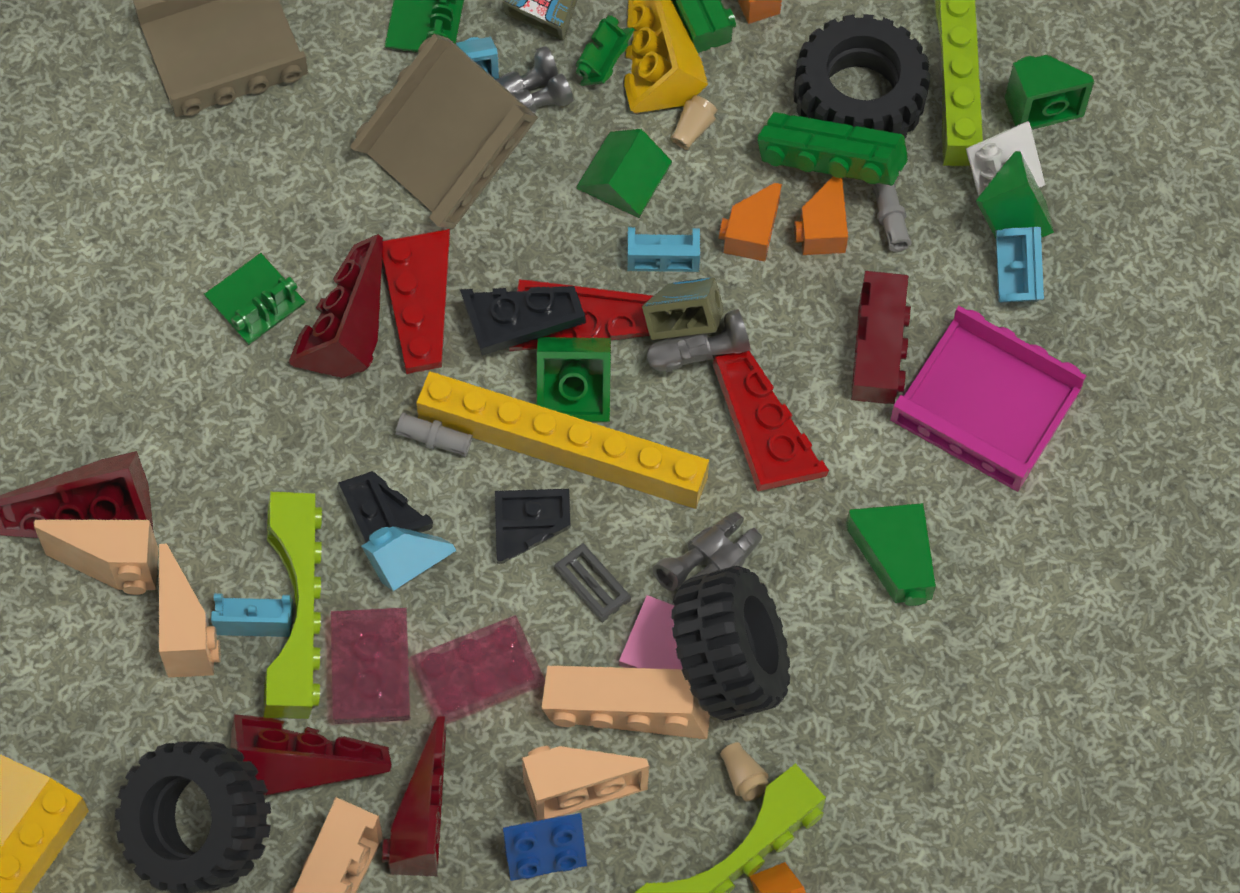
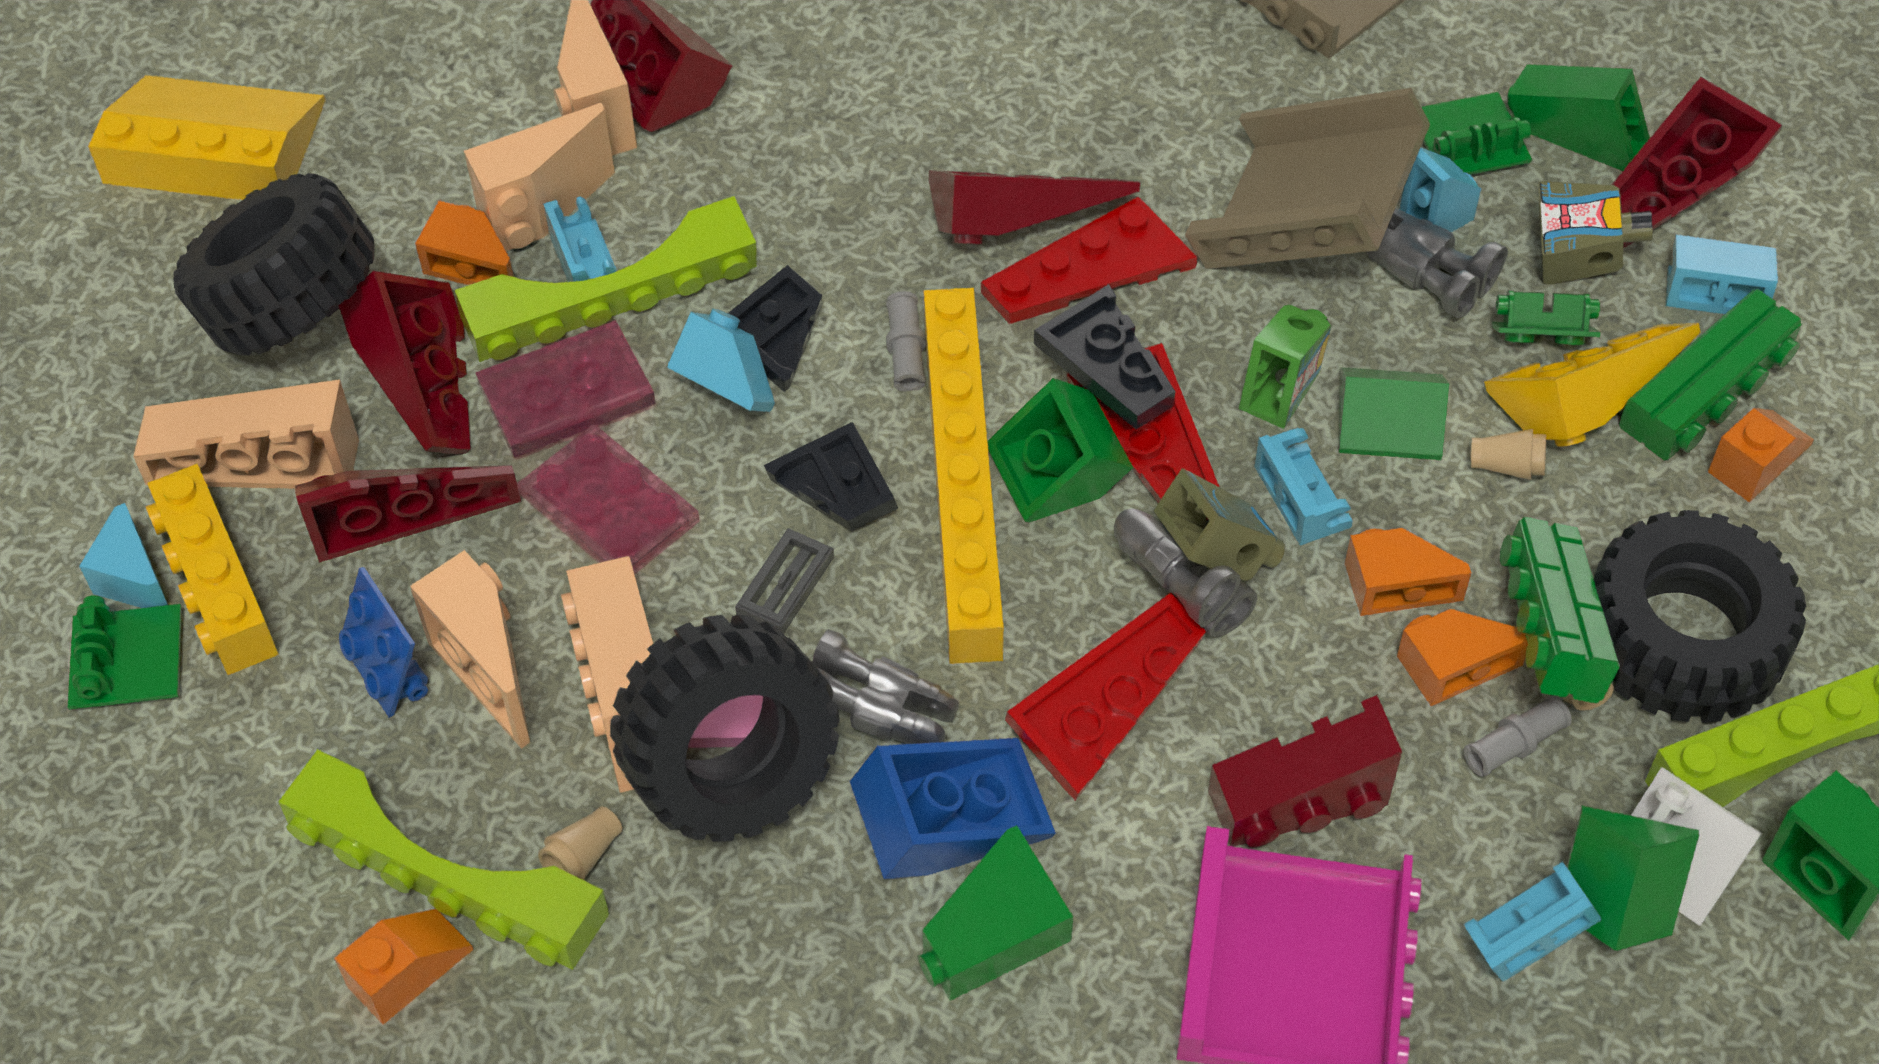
camera: 70 degrees right, 10 degrees down
(212, 690) = (461, 246): none -> orange slope
(255, 298) = (996, 112): green hinge -> none
(571, 213) = (1290, 341): none -> bright green torso
(809, 546) = (946, 803): none -> blue slope

